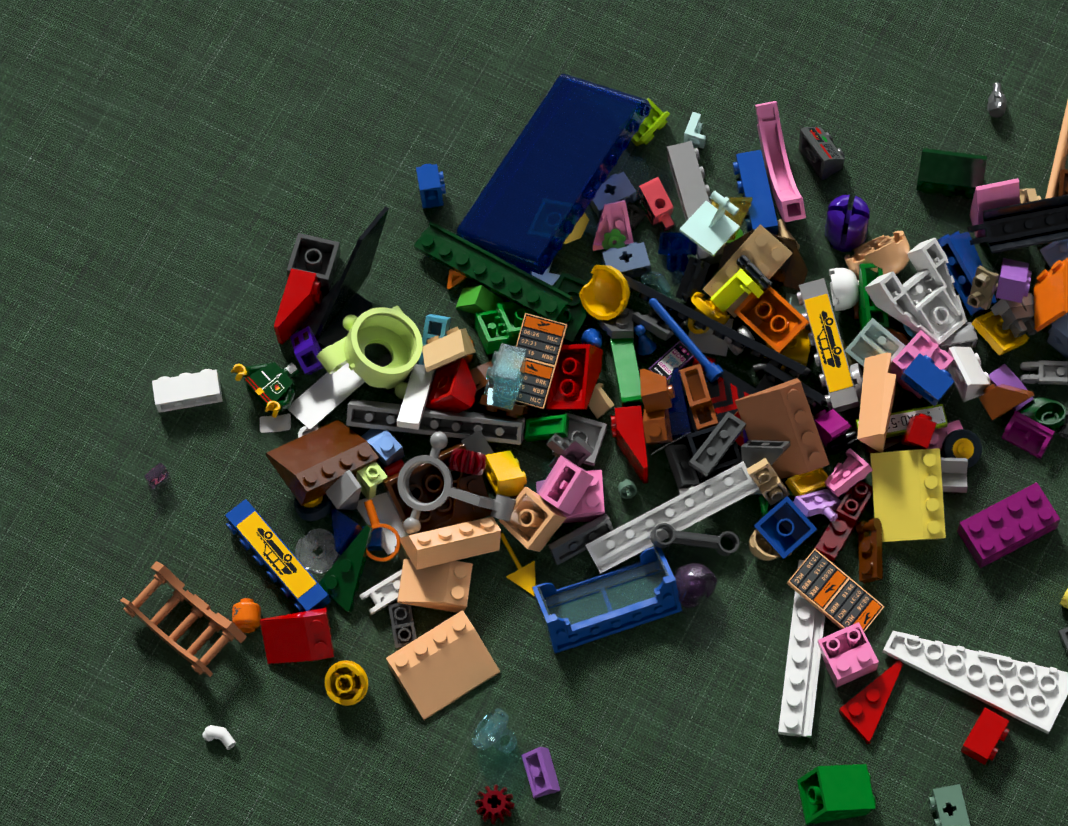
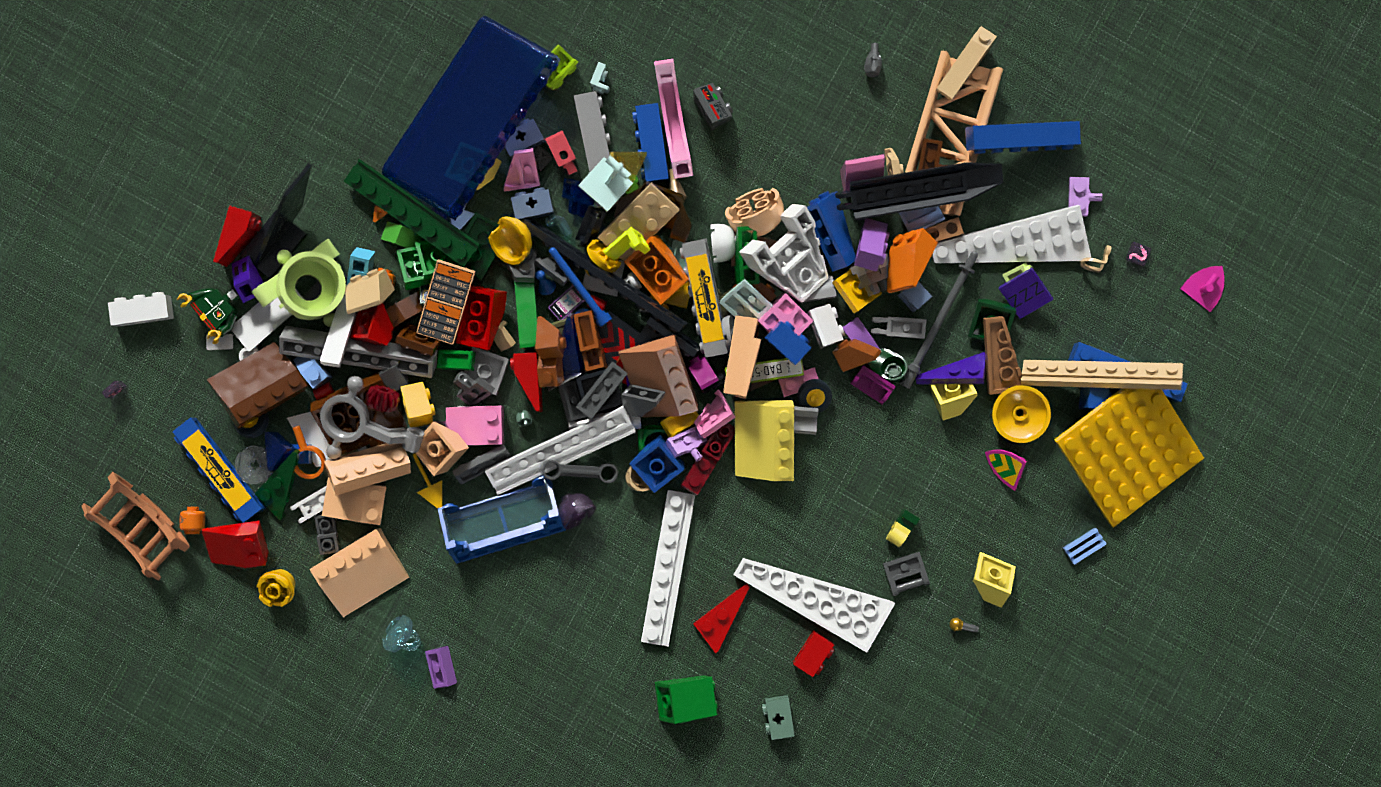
camera: 10 degrees left, 20 degrees up
(216, 732) = (169, 623): white arm -> none
(317, 257) = (253, 192): dark grey brick -> none
(345, 492) = (275, 417): light grey slope -> none
(369, 478) = (301, 401): yellowish green bracket -> none
(430, 185) = (358, 124): blue brick -> none
(489, 797) = (395, 700): dark red gear -> none
(505, 376) = (417, 323): clear light blue brick -> none
(565, 485) = (467, 421): bright pink slope -> none
(592, 337) = (499, 277): blue piece -> none
(616, 235) = (522, 180): bright green plant -> none
(754, 273) = (642, 230): black axle -> none
(768, 481) = (645, 425): tan slope -> none
(834, 592) = (696, 524): tile -> none
(840, 217) = (725, 169): dark purple cylinder -> none
(847, 654) = (703, 579): bright pink slope -> none
(870, 550) = (729, 484): reddish brown plate -> none
(919, 432) = (777, 388): red brick -> none
(950, 172) = (826, 135): dark green slope -> none
(983, 288) = (843, 255): dark tan hips -> none
(1008, 525) = (849, 467): magenta brick -> none

